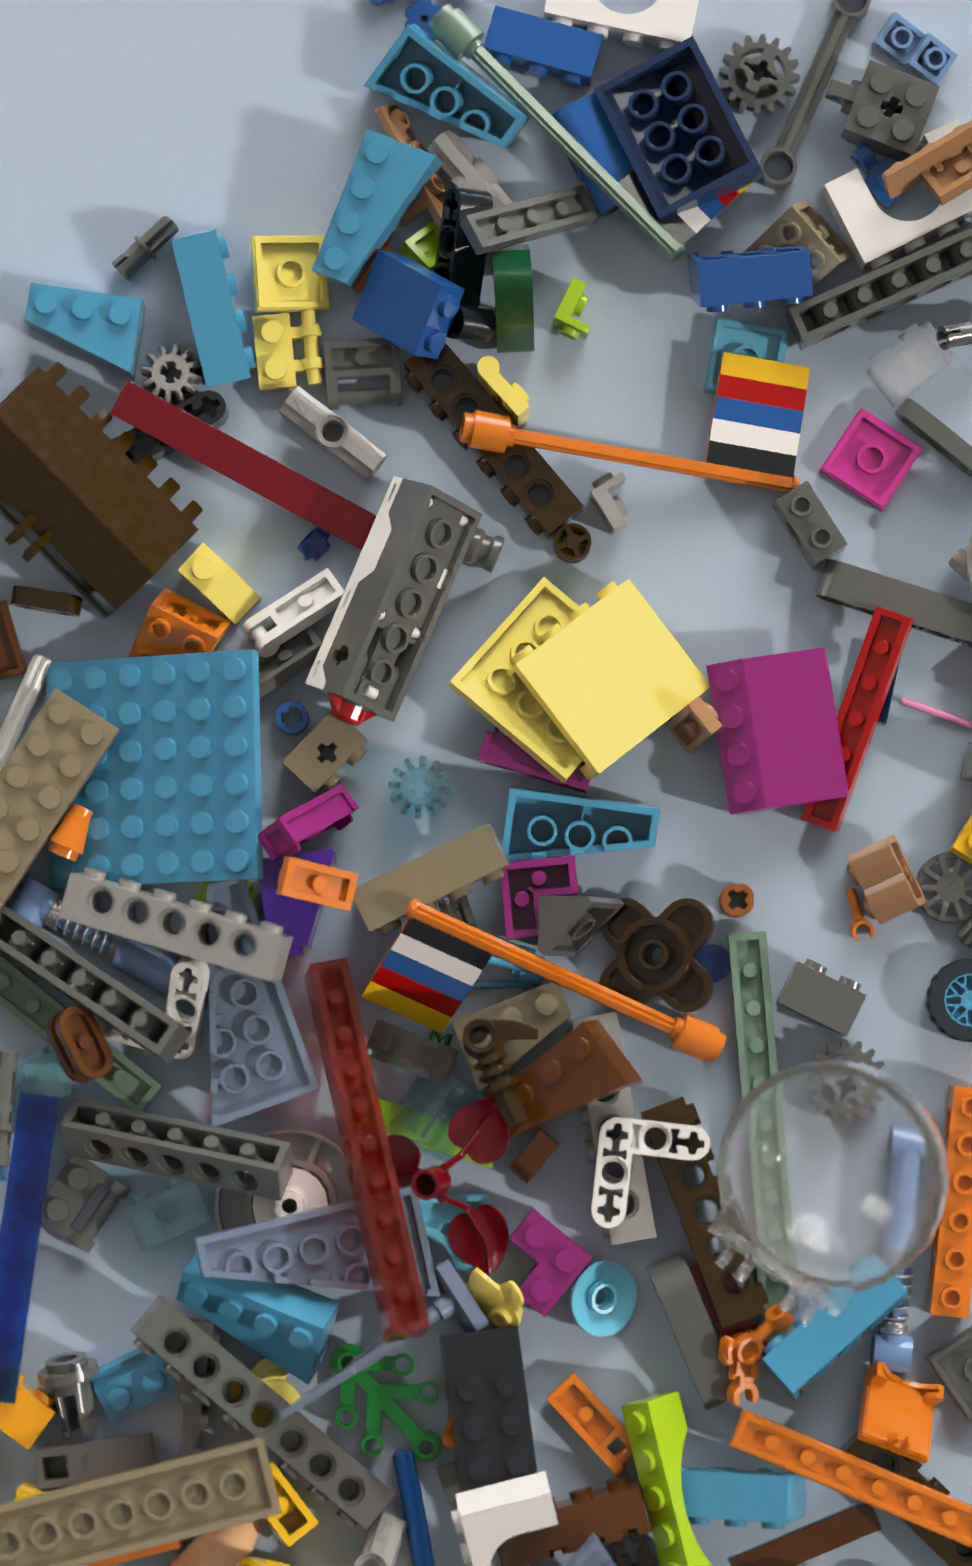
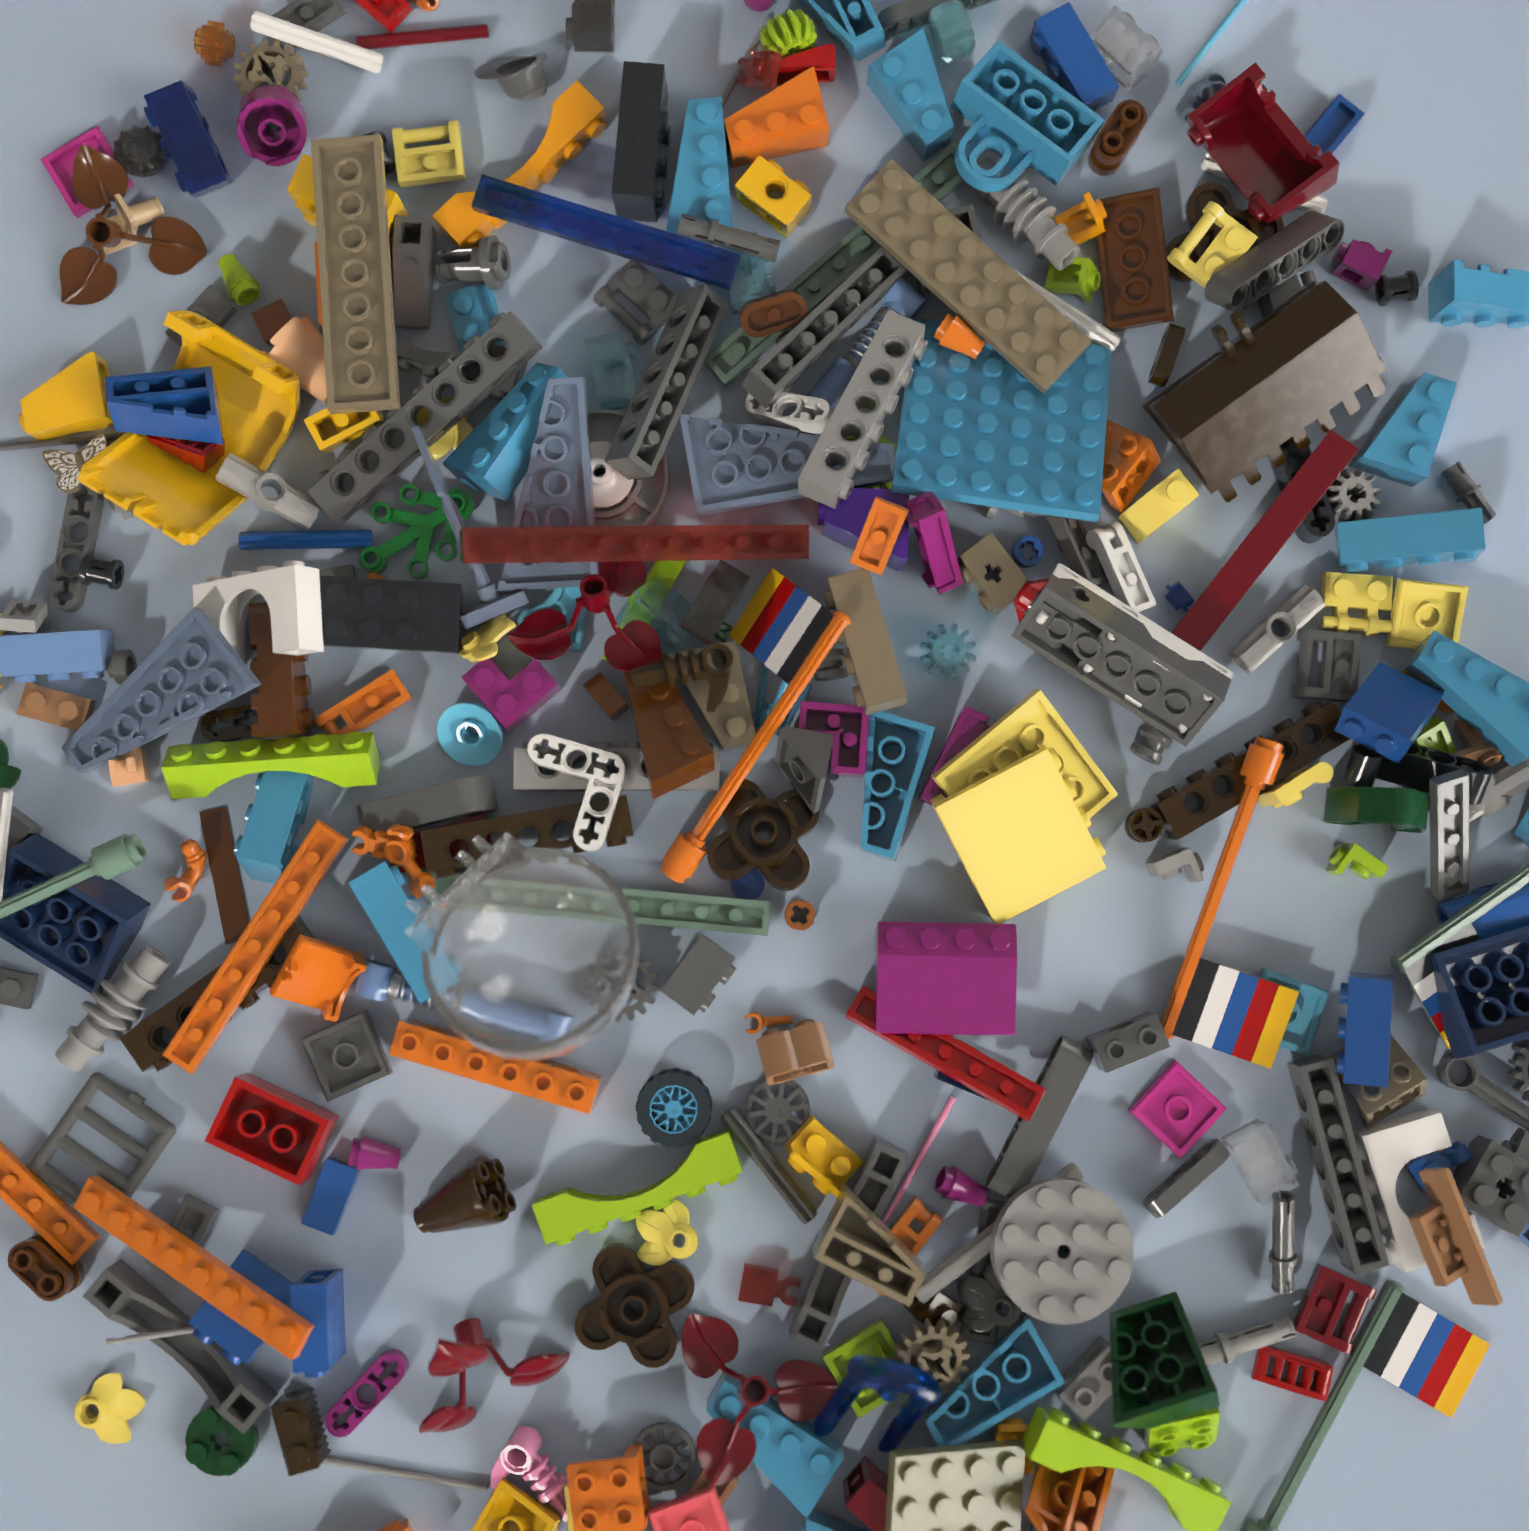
camera: 100 degrees right, 0 degrees up
(694, 724) = (964, 904): medium nougat plate -> none

